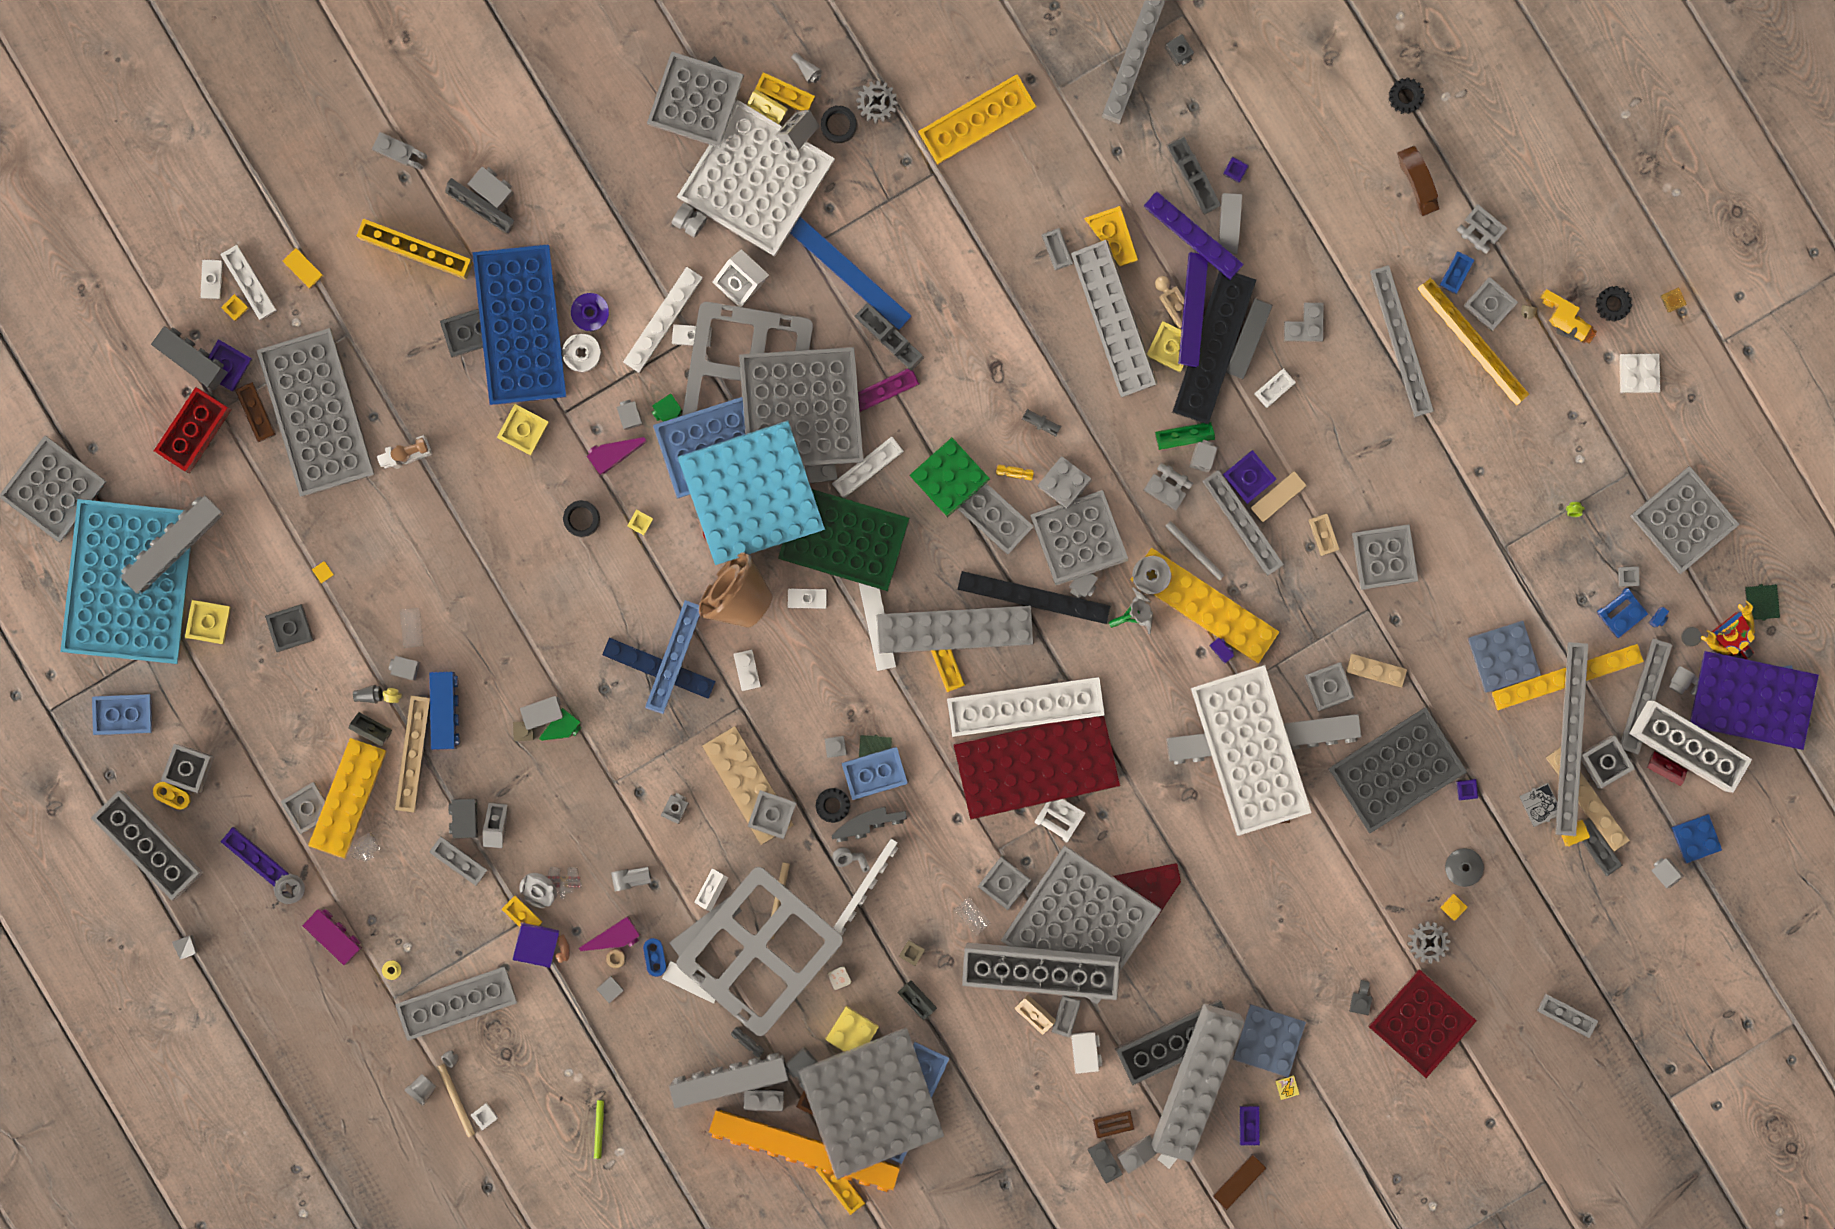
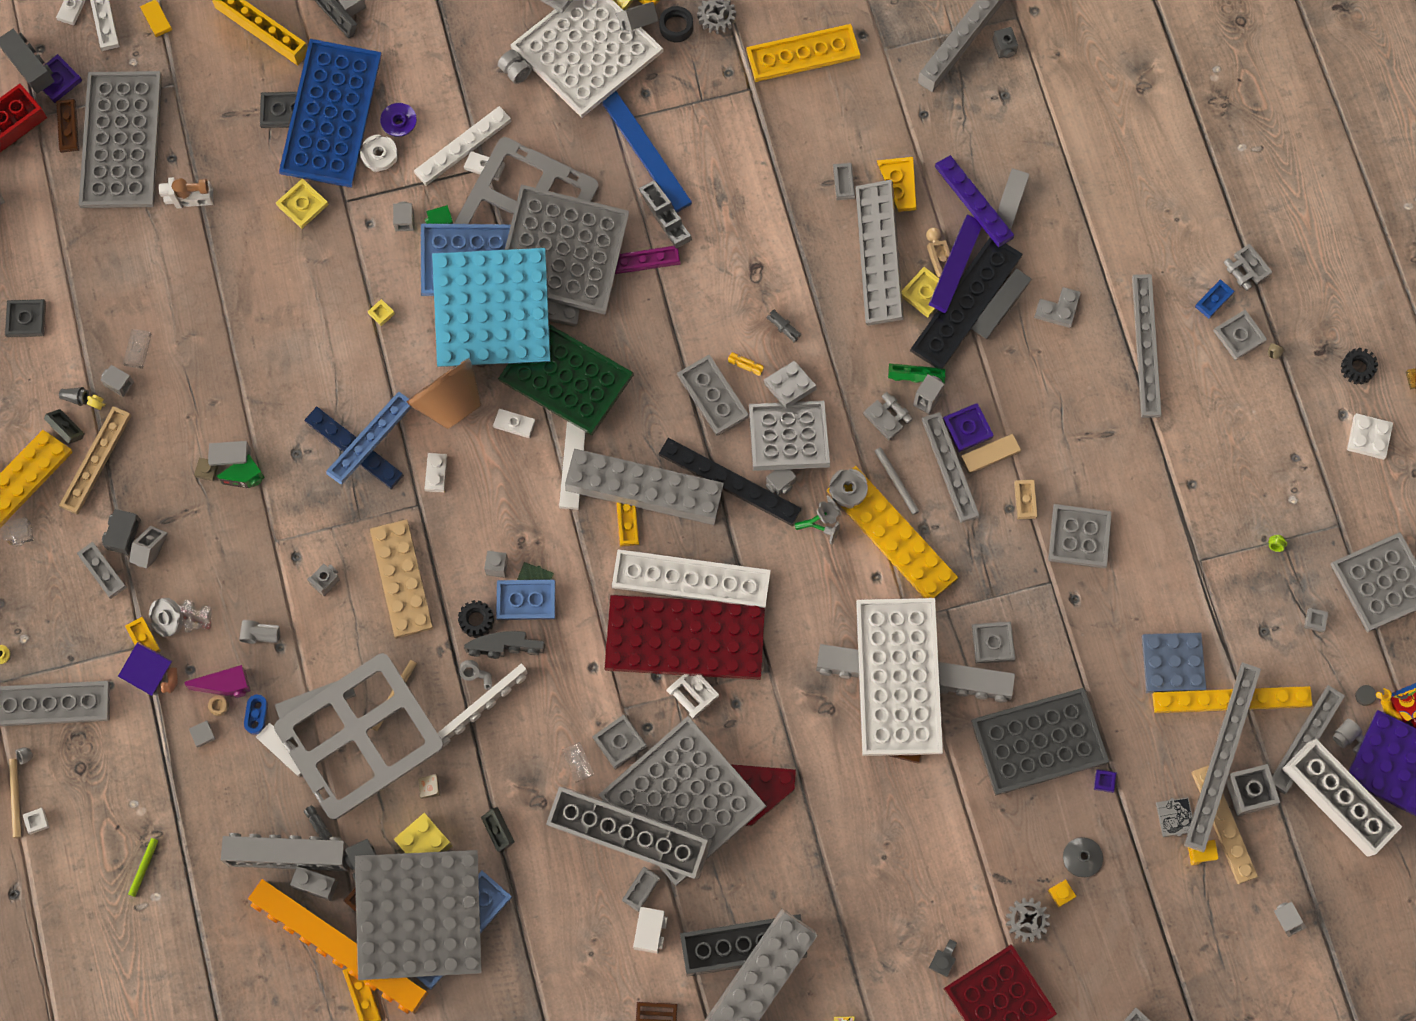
camera: 20 degrees right, 15 degrees down
(235, 307) = (83, 33): yellow plate -> none
(322, 572) = (75, 278): yellow sticker -> none
(443, 710) = (138, 428): blue brick -> none
(578, 504) = (325, 281): black tyre -> none
(610, 454) = (373, 246): magenta slope -> none
(711, 890) = (332, 665): white plate -> none
(740, 278) = (544, 127): white slope -> none
(771, 814) = (413, 608): light grey plate -> none
(869, 467) = (609, 322): white tile -> none
(911, 952) = (507, 782): dark tan plate -> none
(949, 477) = (682, 350): green plate -> none
(1035, 1014) = (610, 877): tan plate -> none
(1193, 175) = (988, 150): dark grey slope -> none
(1222, 650) = (896, 579): dark purple piece -> none
(1235, 169) = (1029, 157): dark purple tile -> none
(1269, 1040) = (839, 974): sand blue plate -> none
(1275, 388) = (1014, 354): white plate -> none
(1376, 670) = (1043, 641): tan plate -> none
(1406, 107) = (1200, 143): black tyre -> none
(1420, 180) = (1201, 207): reddish brown arch -> none
(1473, 341) = (1213, 359): yellow plate -> none
(1565, 319) = (1309, 366): yellow plate -> none
(1600, 850) = (1225, 878): dark grey tile -> none
(1626, 617) = (1302, 660): blue plate -> none
(1659, 617) = (1338, 667): blue plate -> none
(1667, 768) = (1312, 815): dark red plate -> none
(1696, 838) = (1327, 895): blue plate -> none

